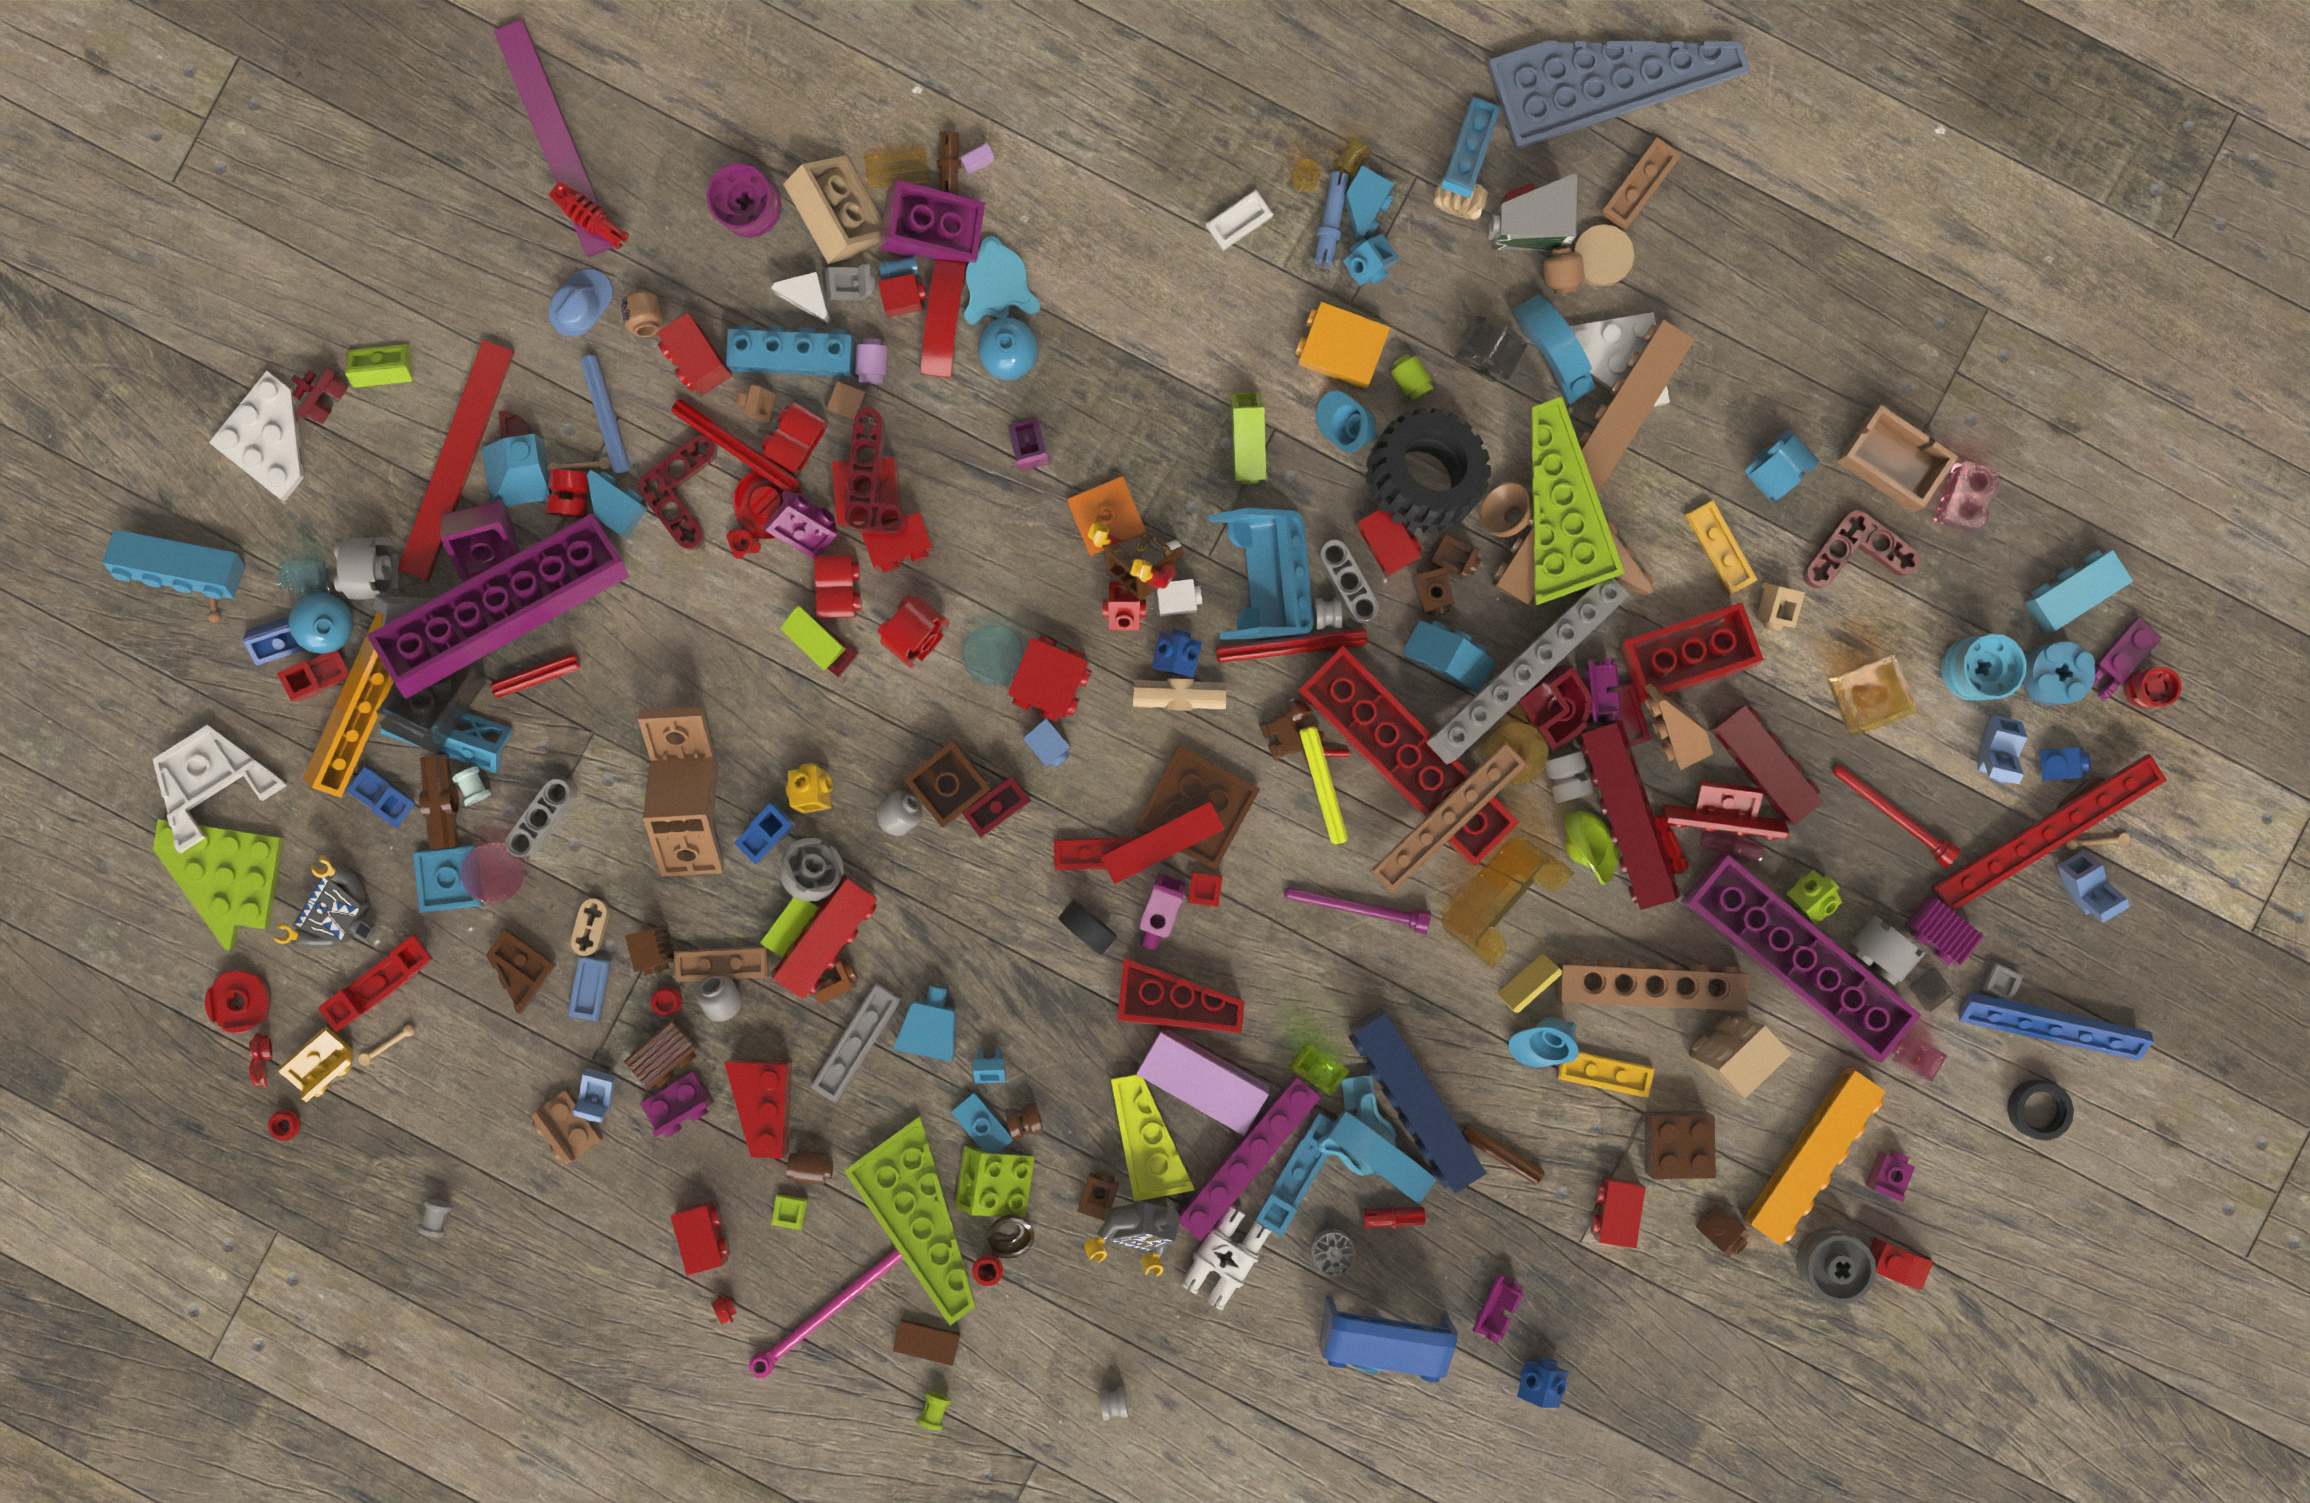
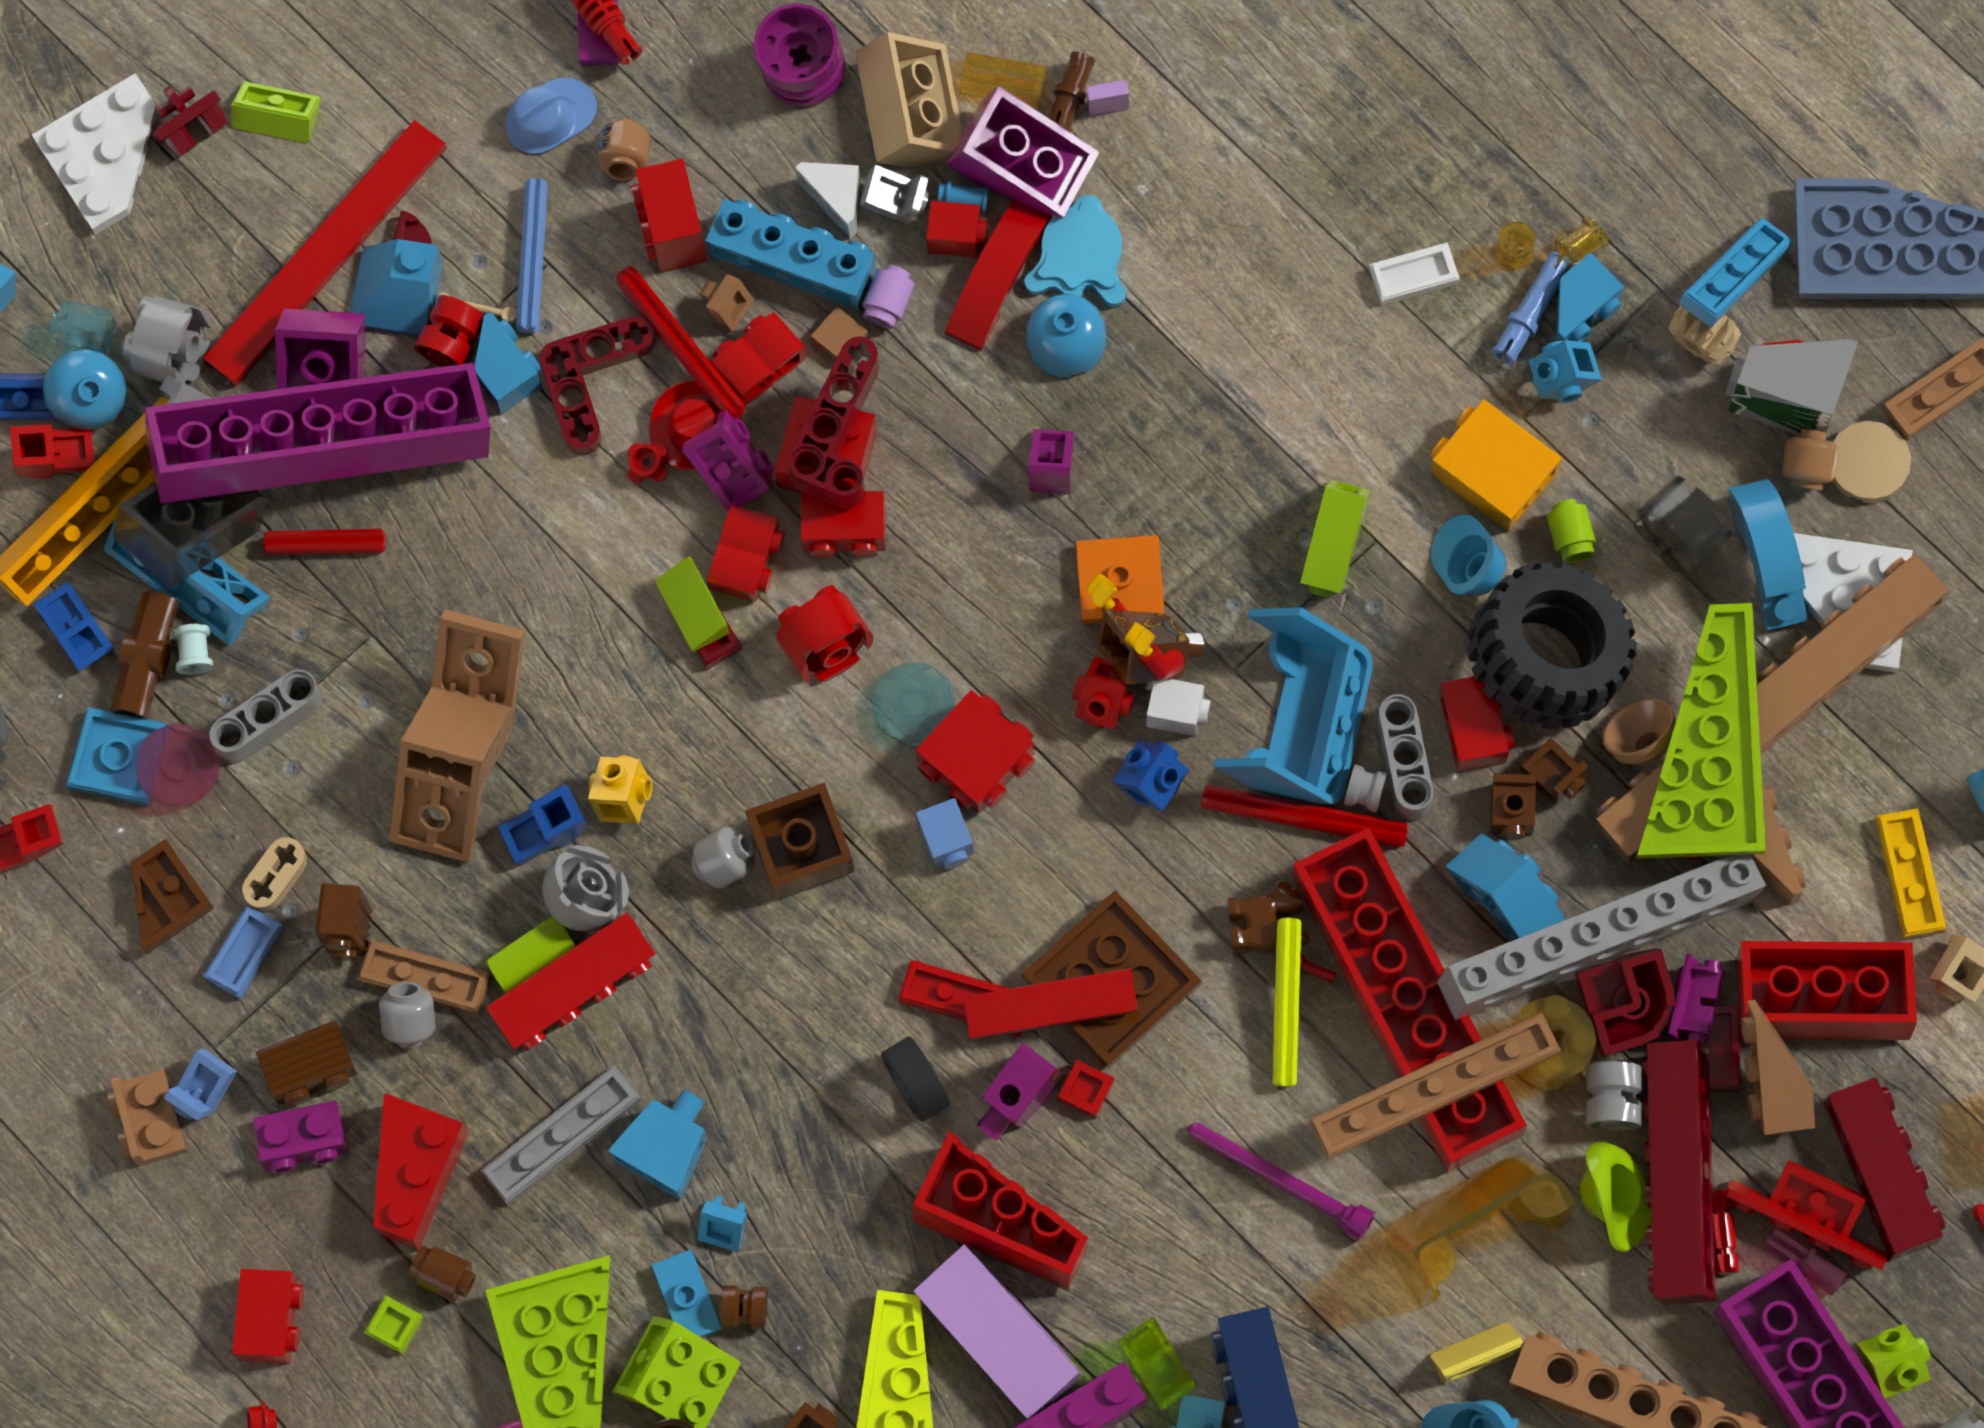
camera: 25 degrees right, 15 degrees down
(666, 1001) = (336, 1000): red plate -> none
(833, 988) = (558, 1053): dark orange bracket -> none
(996, 807) = (852, 889): dark red brick -> none
(1179, 694) = (1137, 828): tan piece -> none

